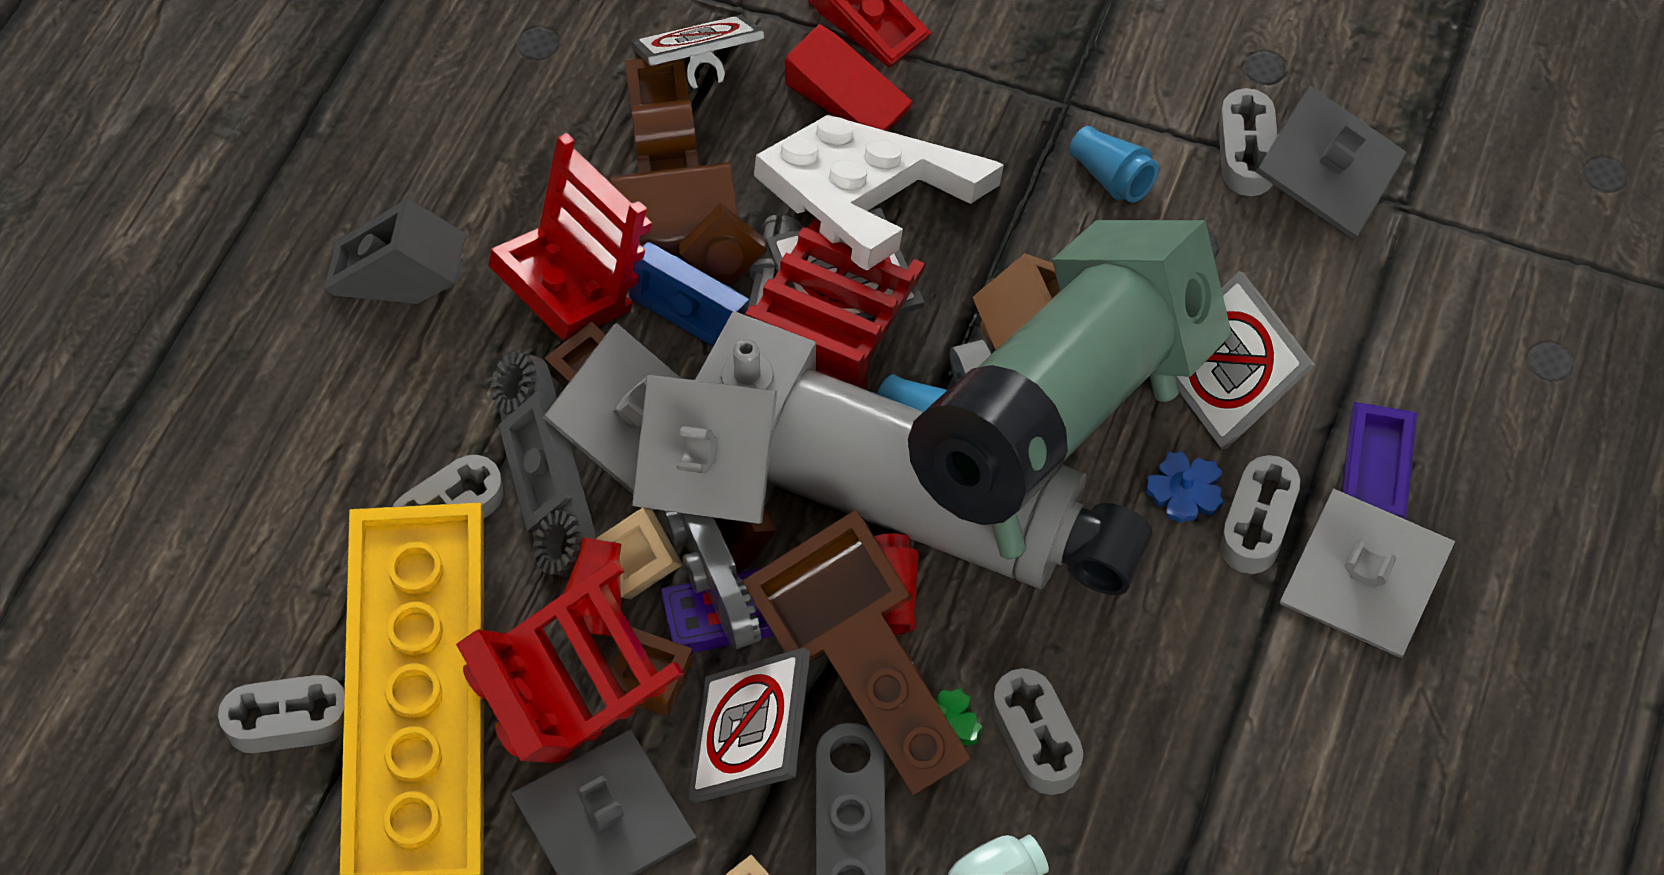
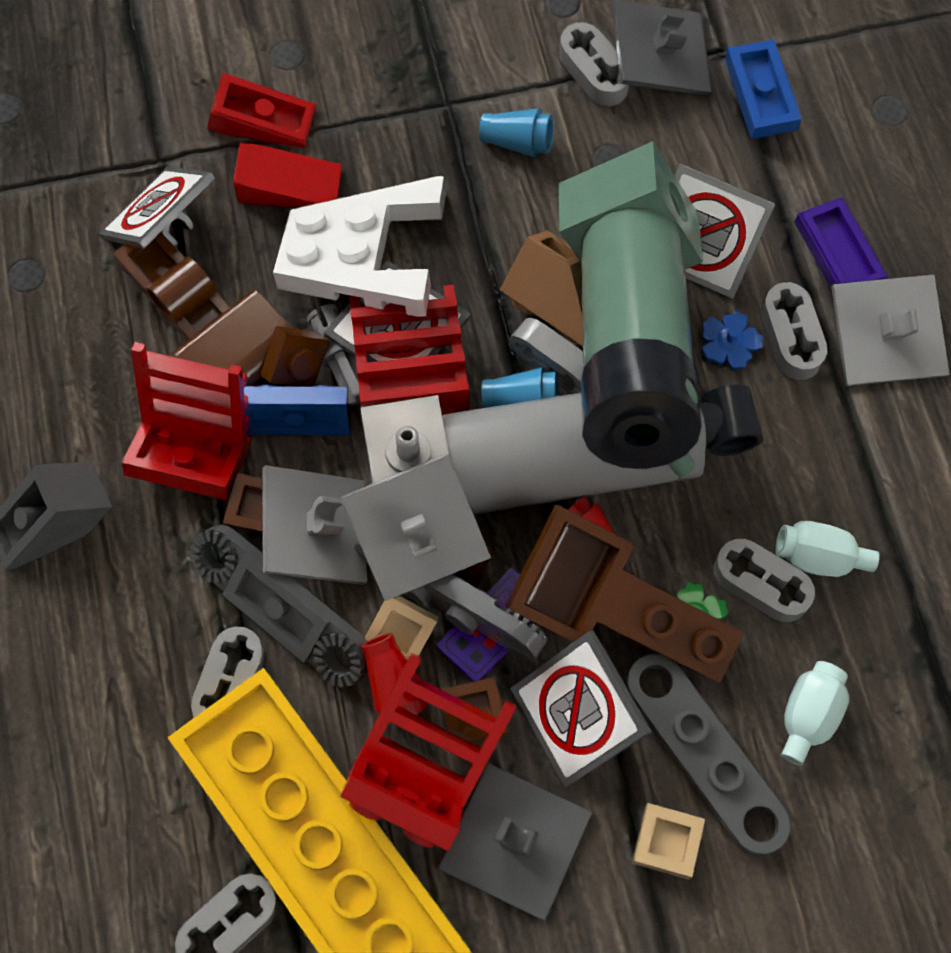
camera: 35 degrees left, 10 degrees up
(1122, 739) = (823, 549): none -> light aqua plant
(1411, 259) = (763, 89): none -> blue plate

